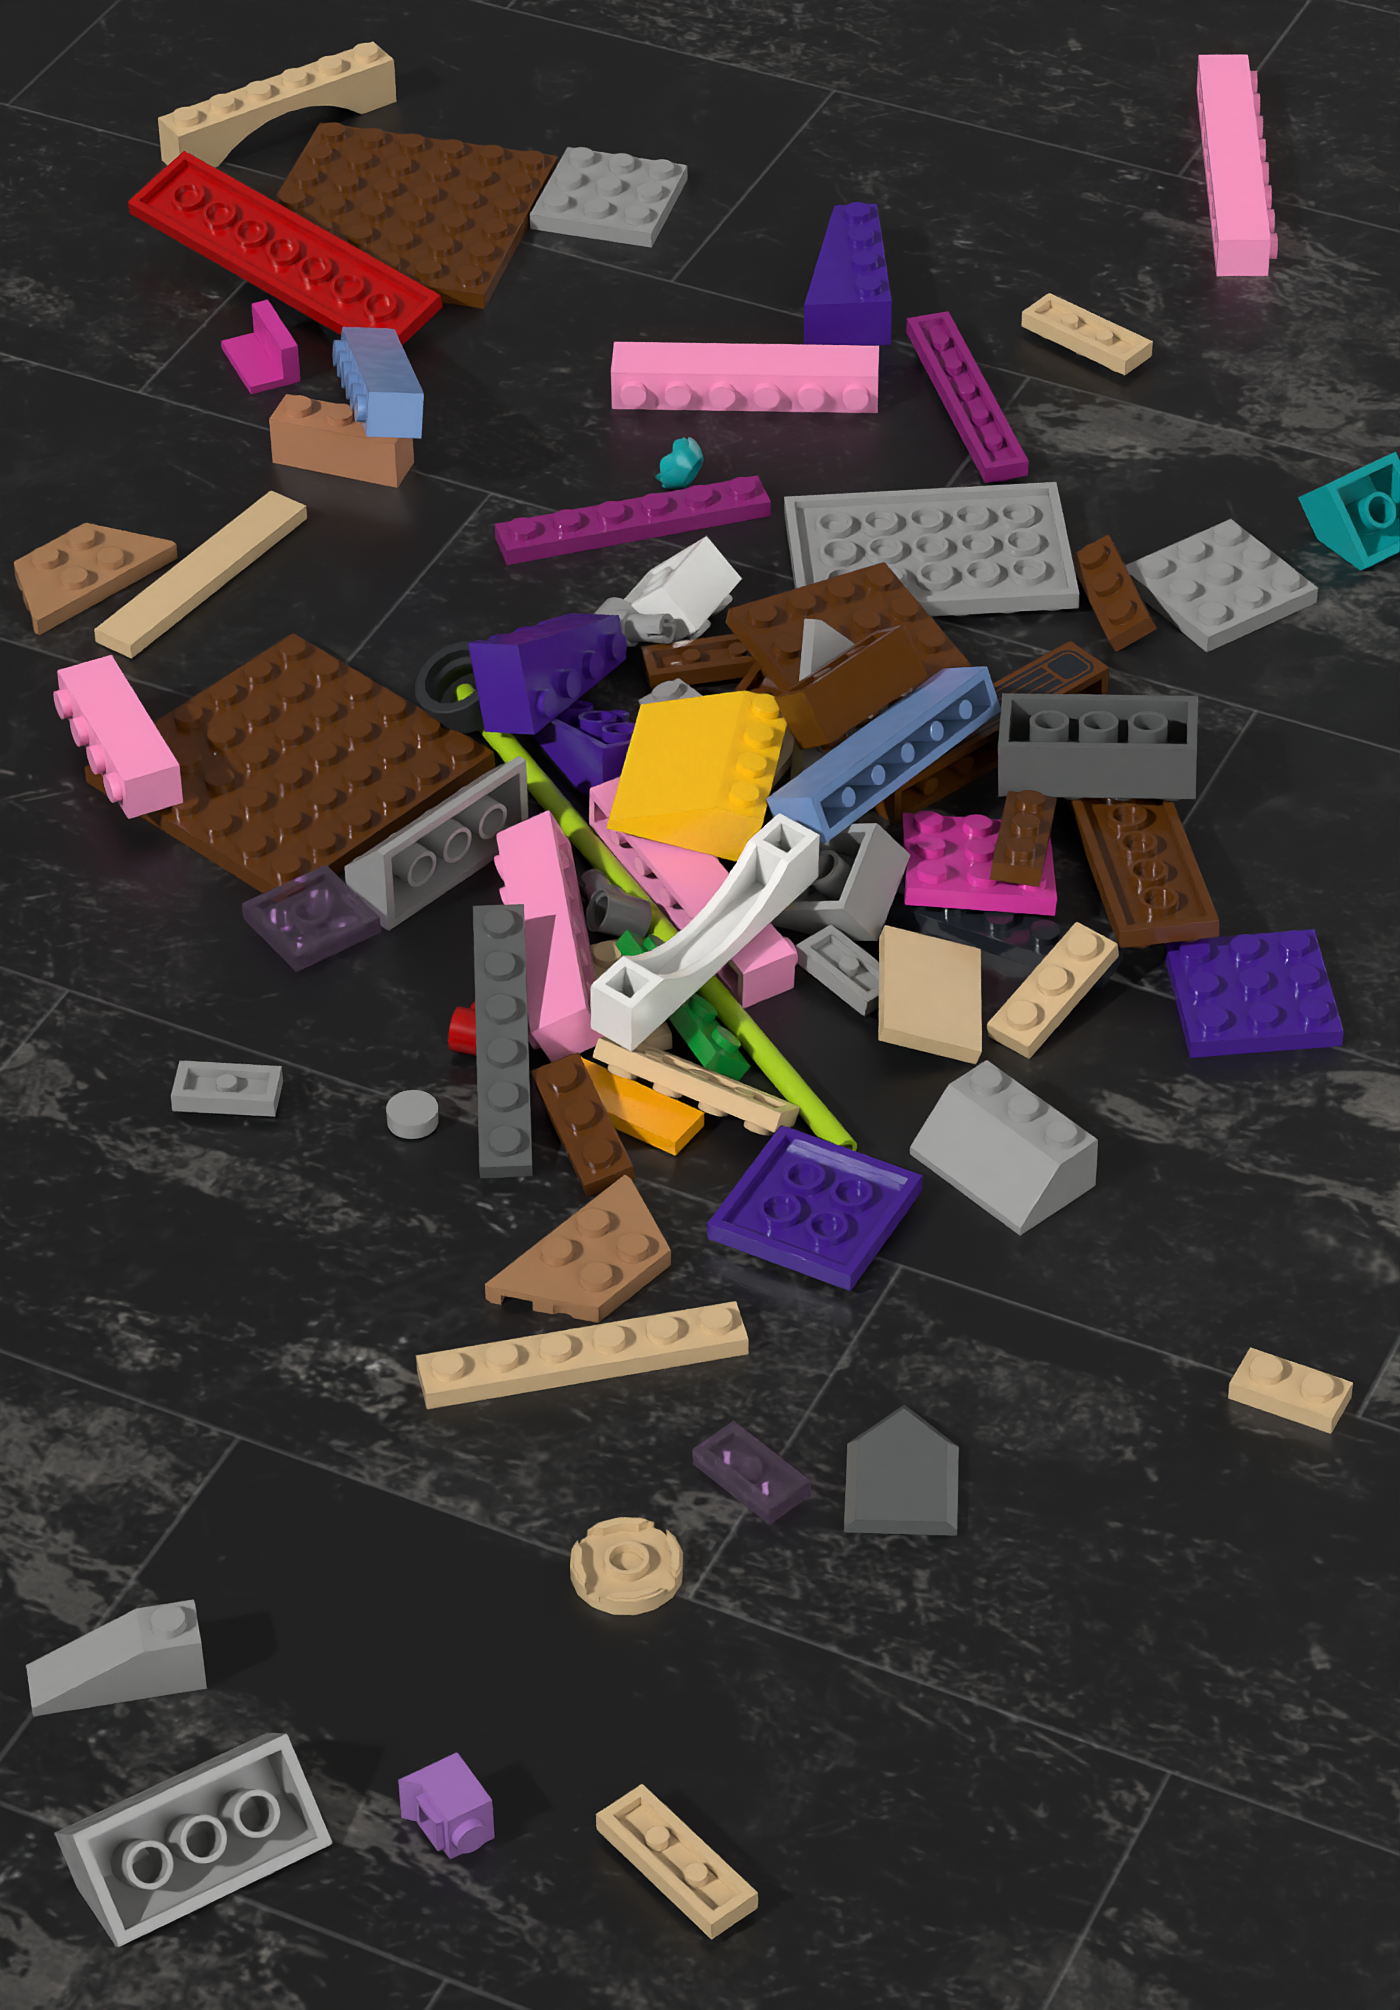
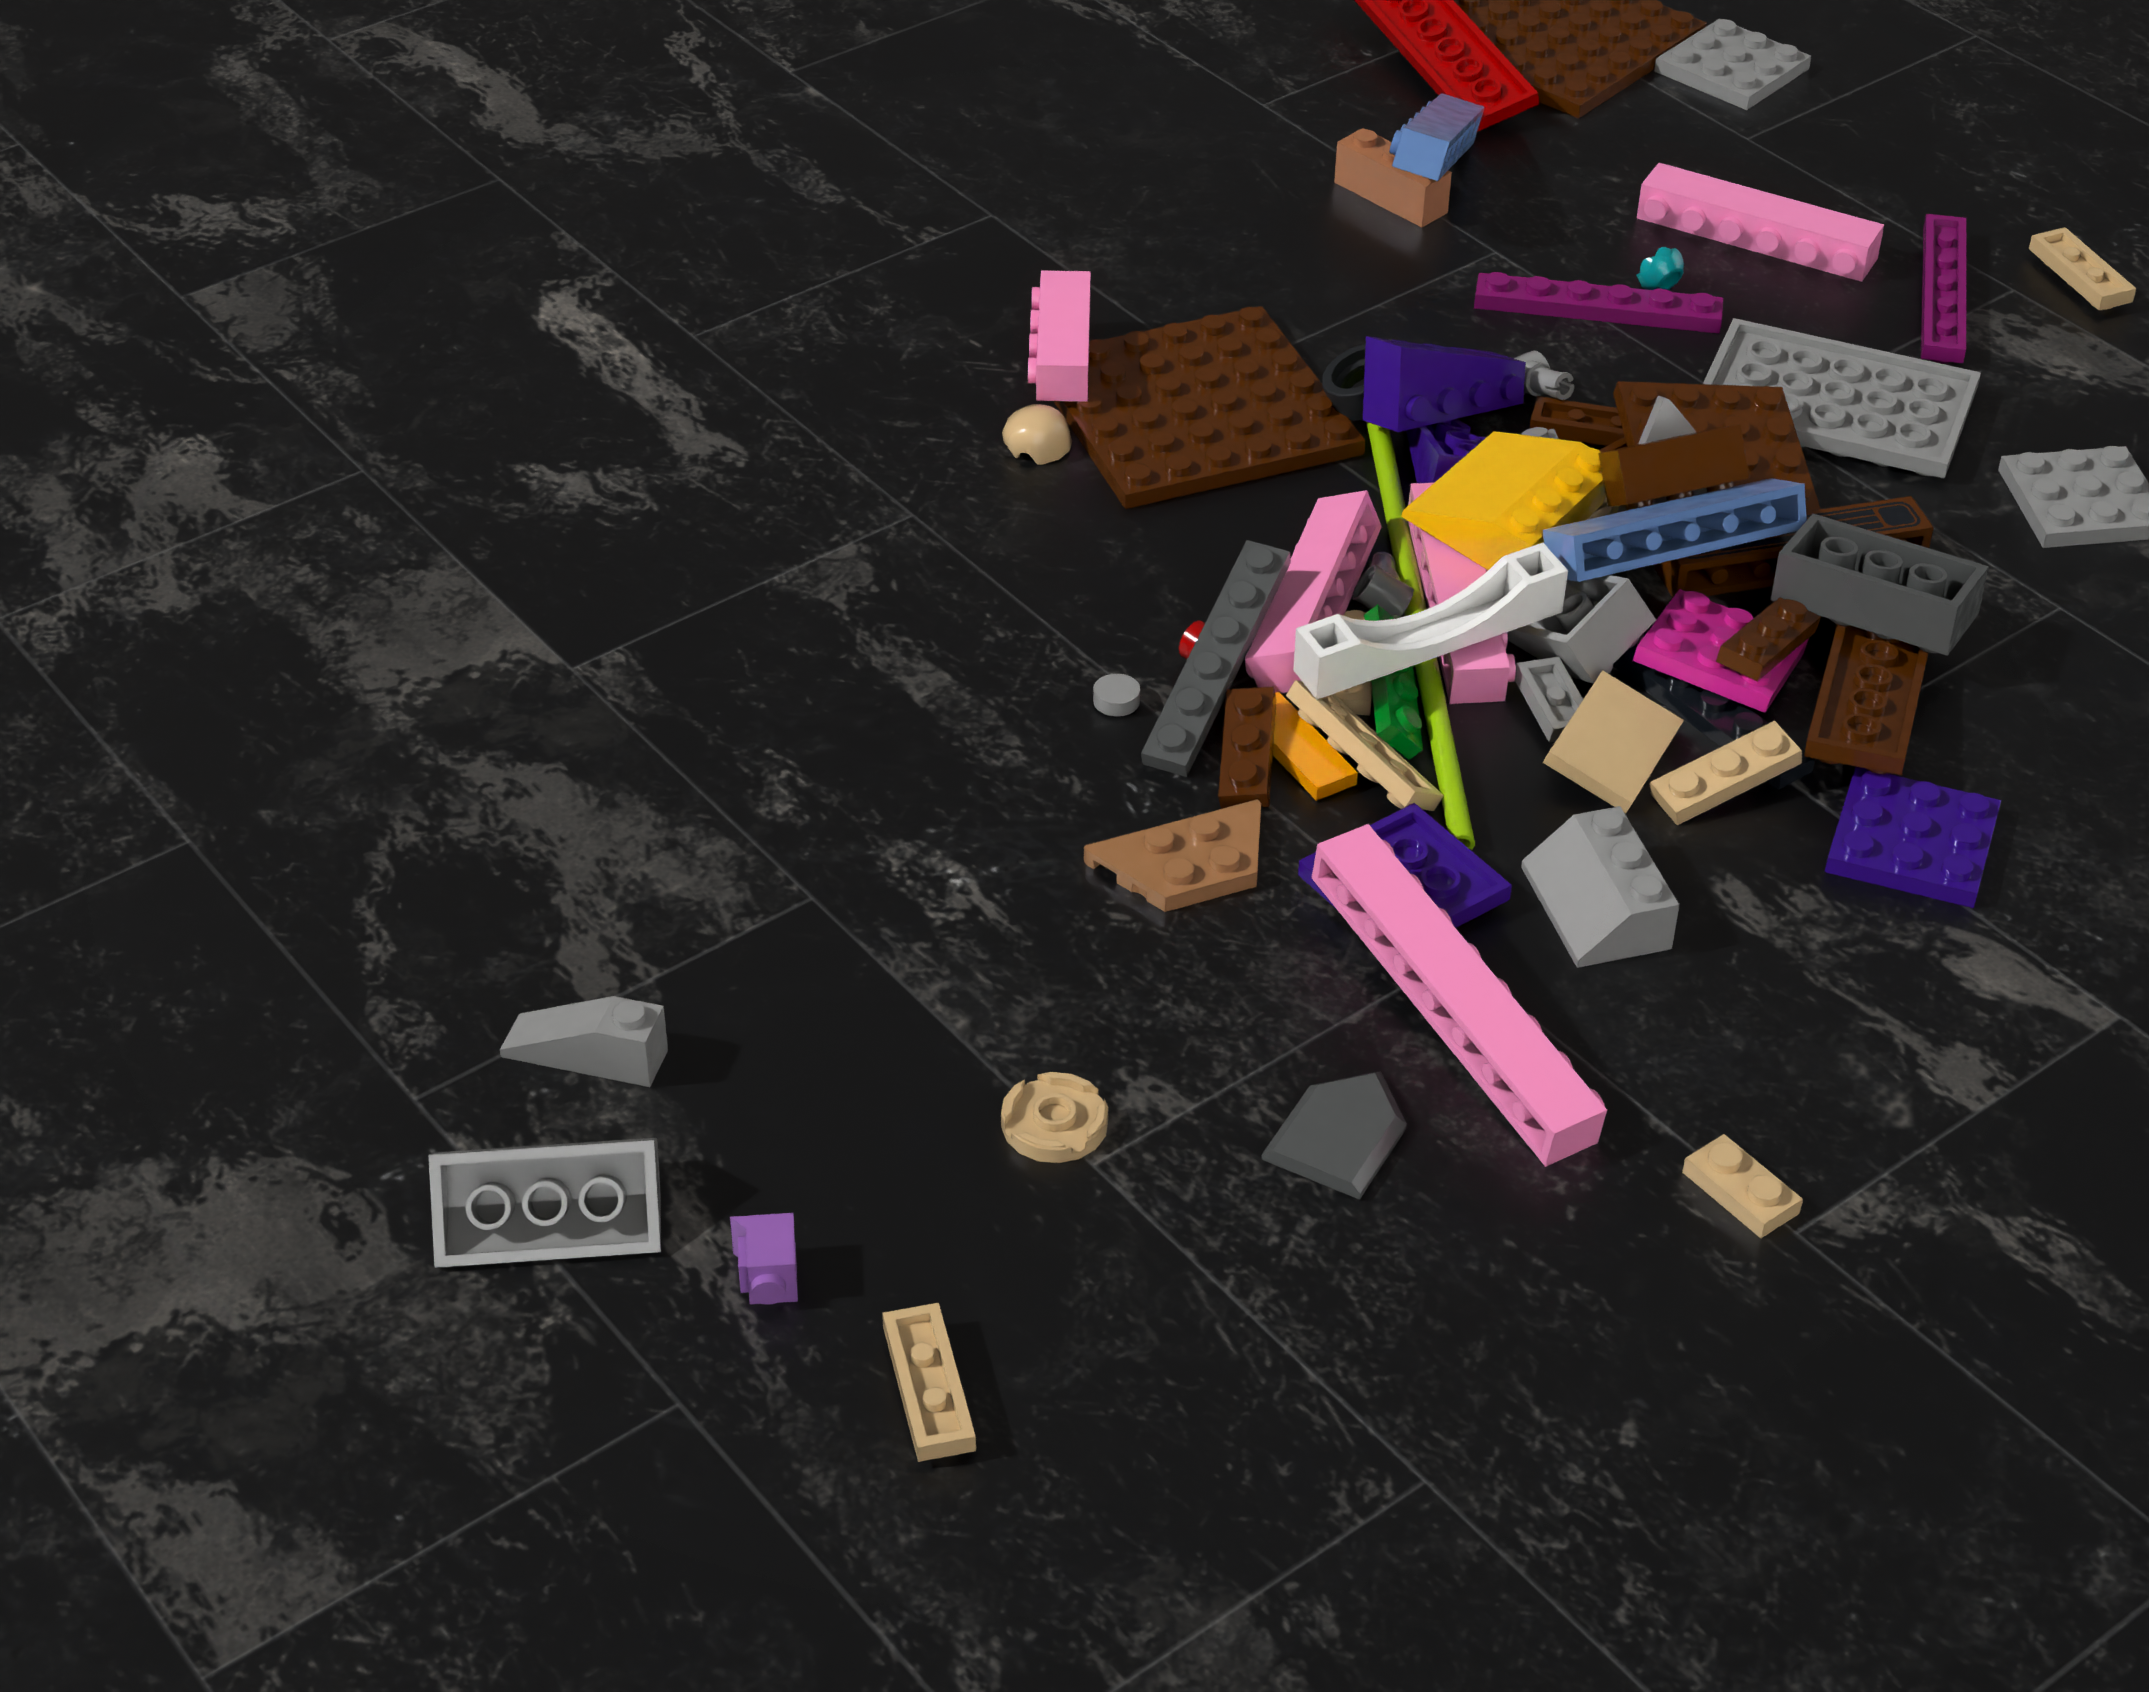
camera: 25 degrees right, 0 degrees up
(84, 570) = (1132, 216): medium nougat wing -> none
(148, 854) = (1038, 432): none -> tan hair
(200, 574) = (1220, 244): tan tile -> none
(227, 1088) = (979, 625): light grey plate -> none
(266, 356) = (1376, 106): dark pink panel -> none
(311, 918) = (1133, 519): clear purple plate -> none
(440, 845) = (1265, 493): light grey slope -> none
(581, 1355) = (1131, 932): tan plate -> none
(687, 588) = (1603, 362): white slope -> none
(751, 1472) = (1207, 1078): clear purple plate -> none
(850, 283) = (1892, 172): dark purple wedge -> none
(940, 1300) = (1459, 995): none -> bright pink brick
(1112, 593) = (1980, 473): reddish brown plate -> none

